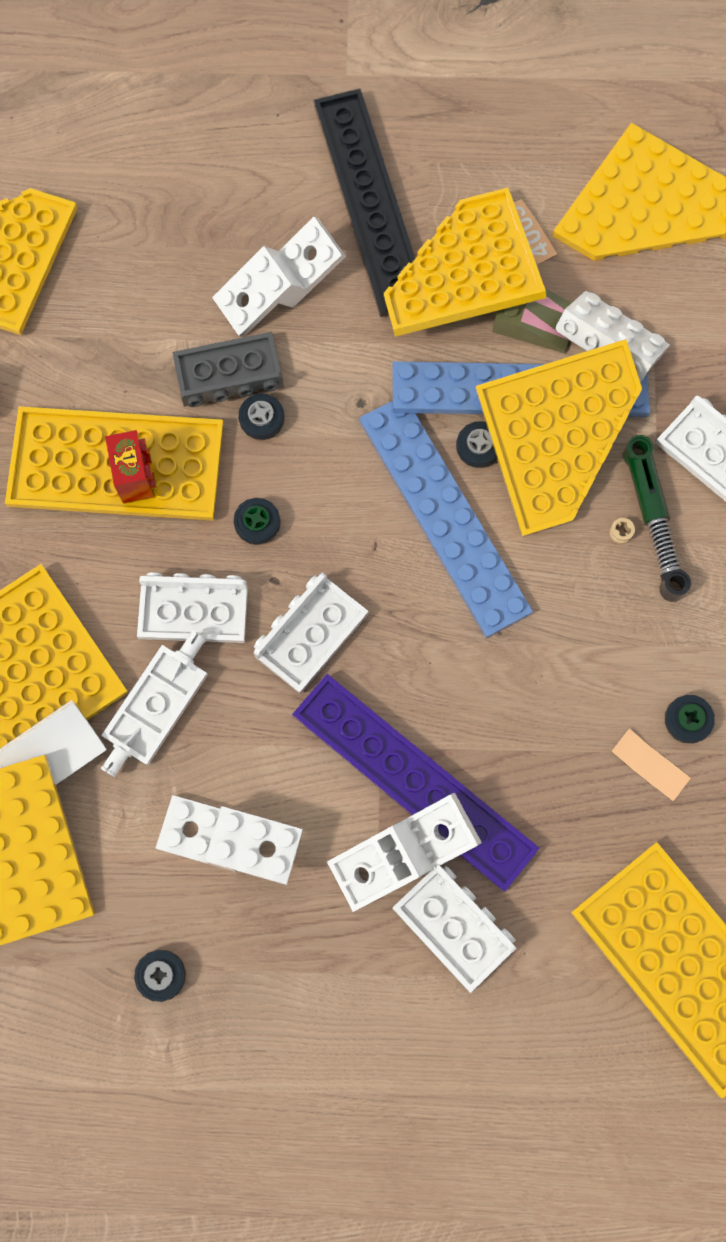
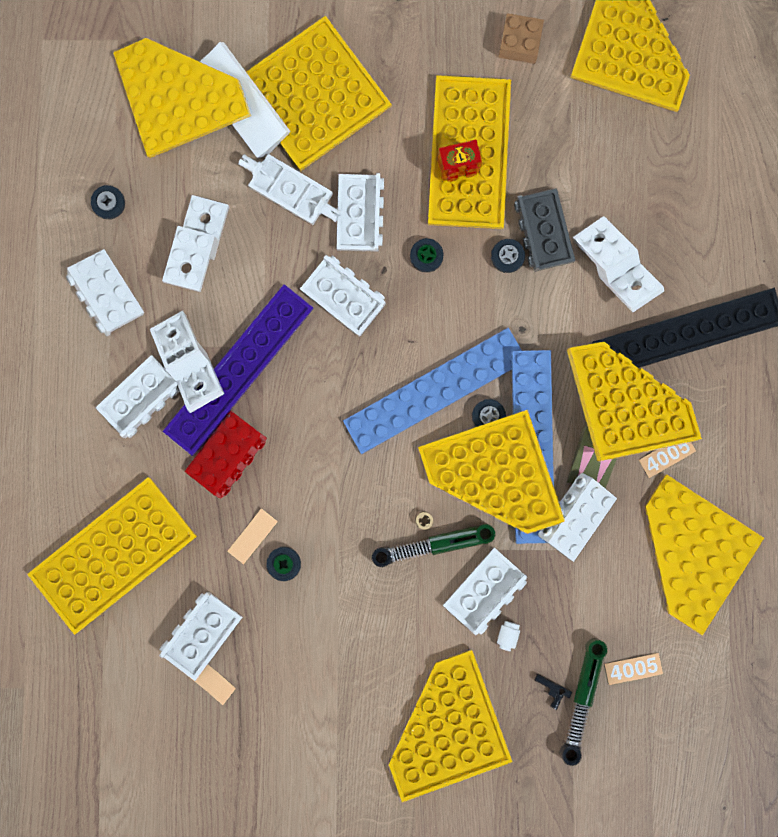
camera: 90 degrees right, 10 degrees up
(297, 981) = (103, 292): none -> white bracket
(537, 800) = (226, 455): none -> red bracket

